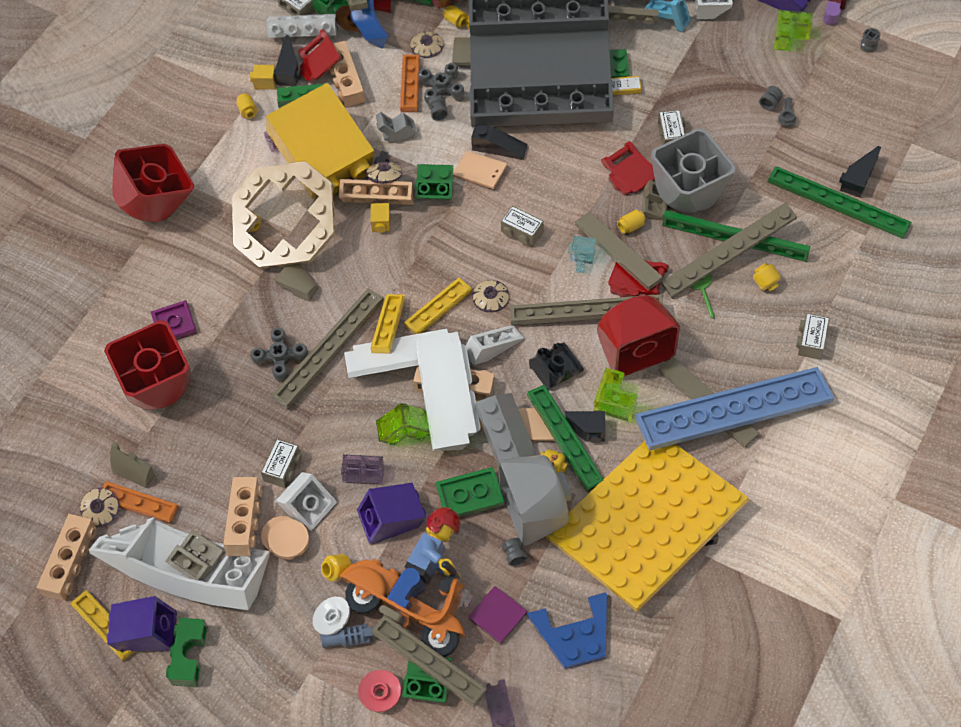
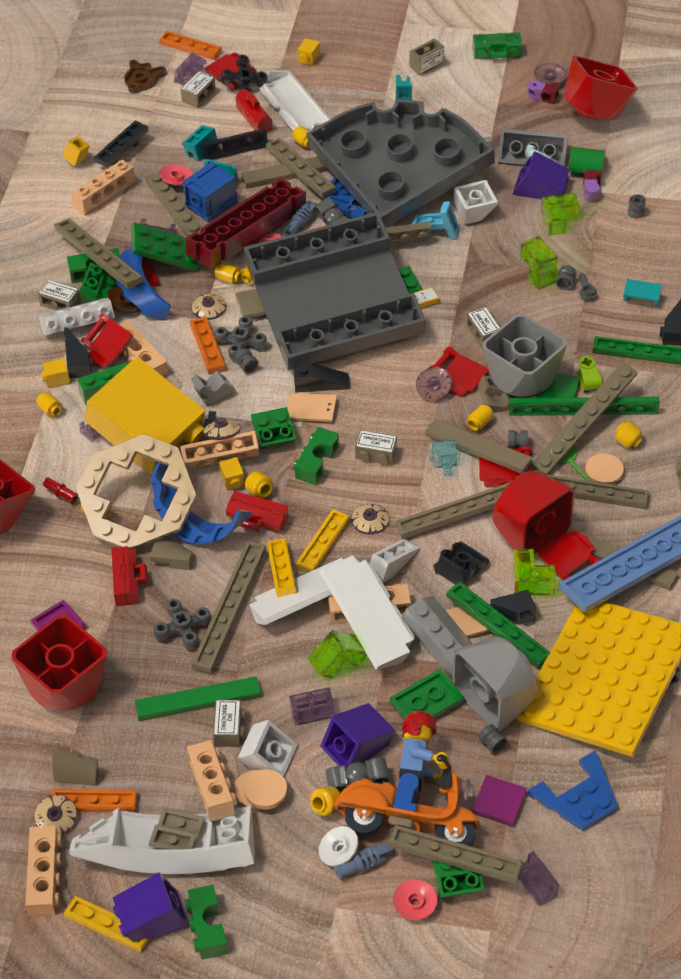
camera: 20 degrees left, 10 degrees down
(223, 191) = (60, 490): none -> red axle
(246, 291) = (124, 580): none -> red piece
(266, 430) = (197, 698): none -> green tile
(328, 262) = (194, 529): none -> blue windscreen
(387, 551) = (374, 770): none -> dark grey piece
(388, 260) = (266, 512): none -> red piece
(400, 235) = (259, 484): none -> yellow head
(472, 209) = (321, 444): none -> green arch
(599, 169) = (431, 377): none -> dish
(656, 252) = (517, 439): none -> dark grey wheel
(660, 384) = (568, 553): none -> red piece
(713, 326) = (606, 492): none -> dark tan tile
(722, 212) = (562, 387): none -> green tile
(730, 306) = (604, 469): none -> light nougat tile
(749, 76) = (541, 261): none -> clear neon green brick
(753, 203) = (589, 376): none -> lime piece
(840, 131) = (642, 290): none -> teal hinge

